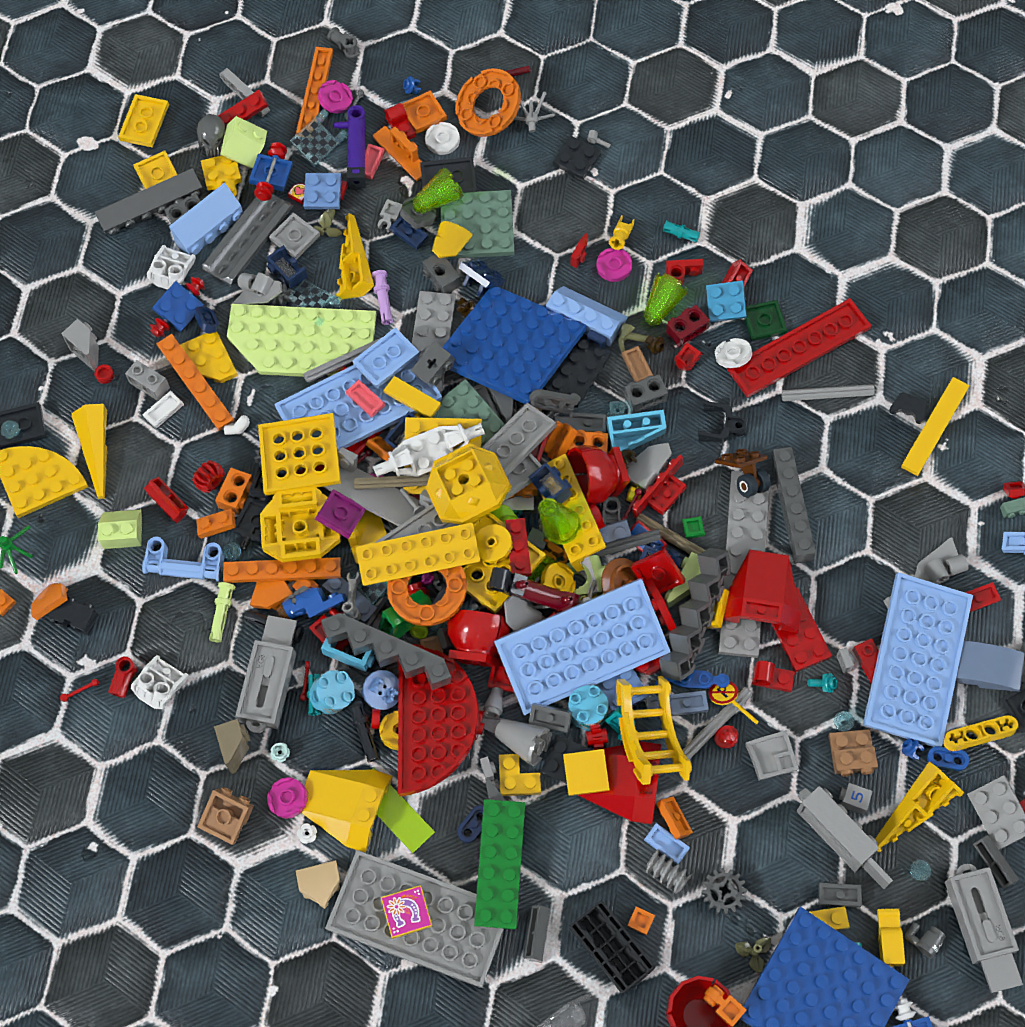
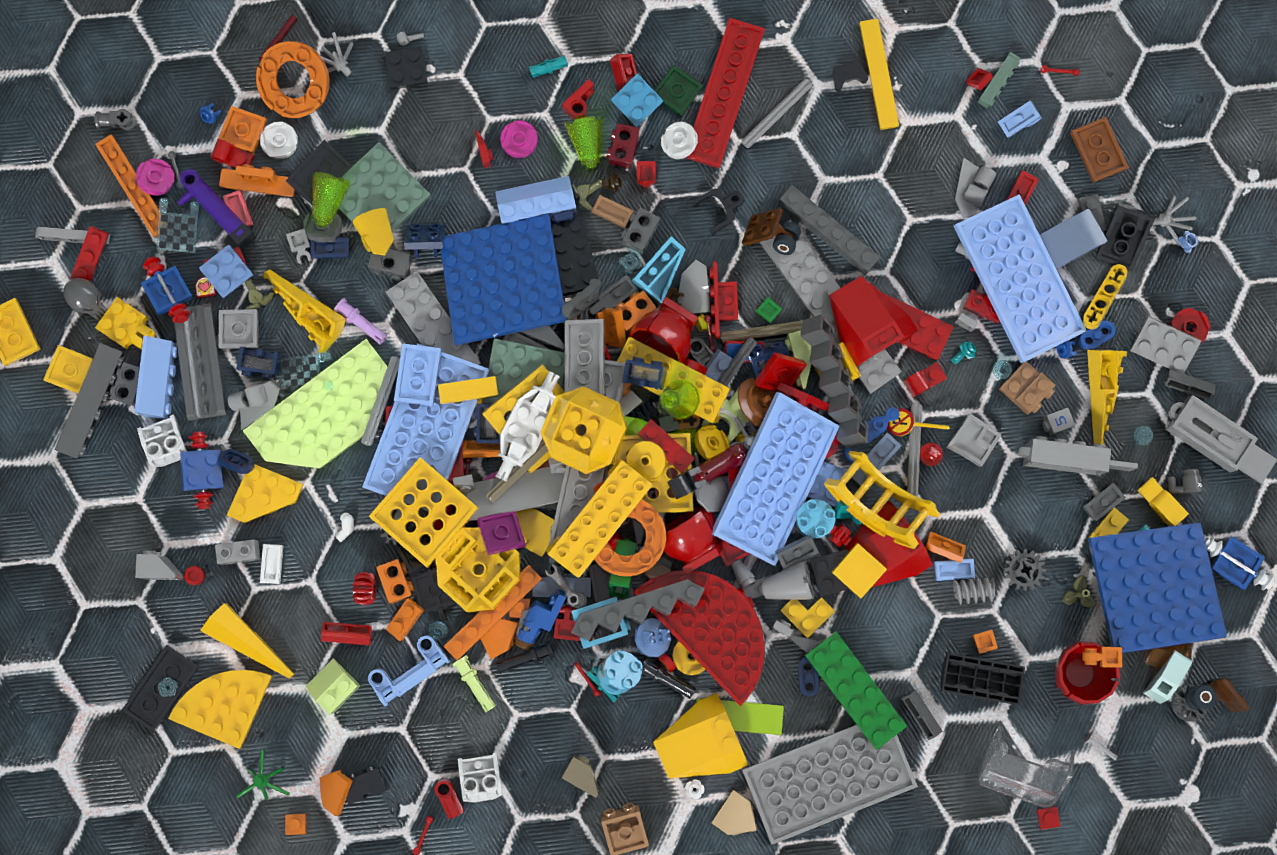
camera: 45 degrees left, 15 degrees up
(195, 382) = (277, 520): orange plate -> none
(243, 141) = (118, 283): yellowish green slope -> none
(268, 676) = (559, 701): light grey piece -> none
(279, 747) = (618, 743): light aqua plate -> none
(287, 798) = (656, 776): dark pink tile -> none
(365, 398) = (431, 421): coral tile -> none
(406, 912) = (819, 782): tile -> none
(417, 509) = (557, 477): light grey pin -> none
(437, 356) = (457, 341): dark grey brick -> none
(465, 306) = (437, 275): dark brown plate -> none
(620, 233) = (503, 108): yellow piece -> none

